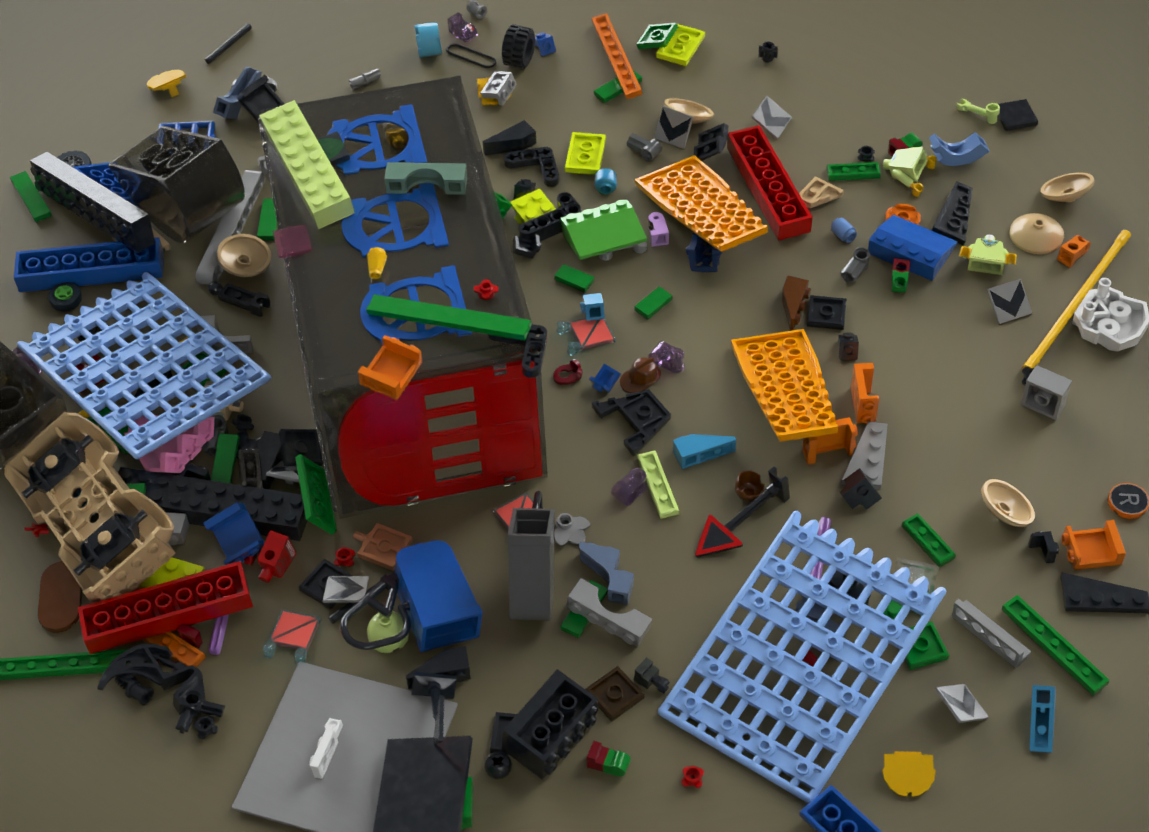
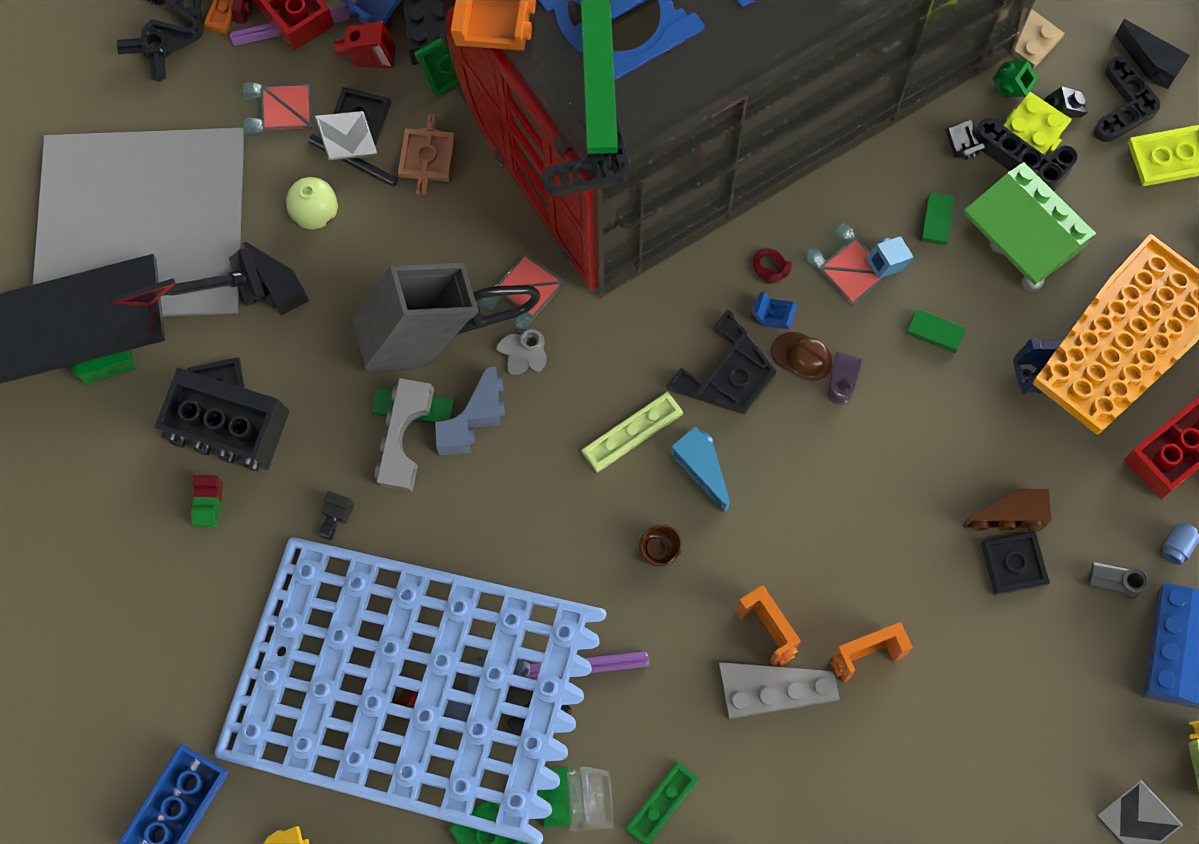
camera: 70 degrees right, 20 degrees up
(203, 722) = (135, 64): black plate -> none
(326, 748) = (131, 196): white hinge -> none
(342, 553) = (399, 112): red plate -> none
(432, 597) = (355, 231): blue piece -> none
(486, 290) = (666, 85): red plate -> none
(498, 771) = (156, 380): black piece -> none
(605, 181) = (1130, 198): dark azure head -> none
(615, 693) = (304, 480): dark brown tile -> none
(630, 486) = (606, 398): clear purple piece -> none
(658, 230) = (1065, 298): lavender leg -> none
(692, 771) = (207, 600): red plate -> none
(719, 537) = (572, 529): black piece -> none
(786, 383) = (839, 542): light orange wing -> none
(848, 346) = (961, 608): black bracket -> none
(859, 490) = (703, 690): black brick -> none
(900, 276) = (1123, 647): green leg -> none

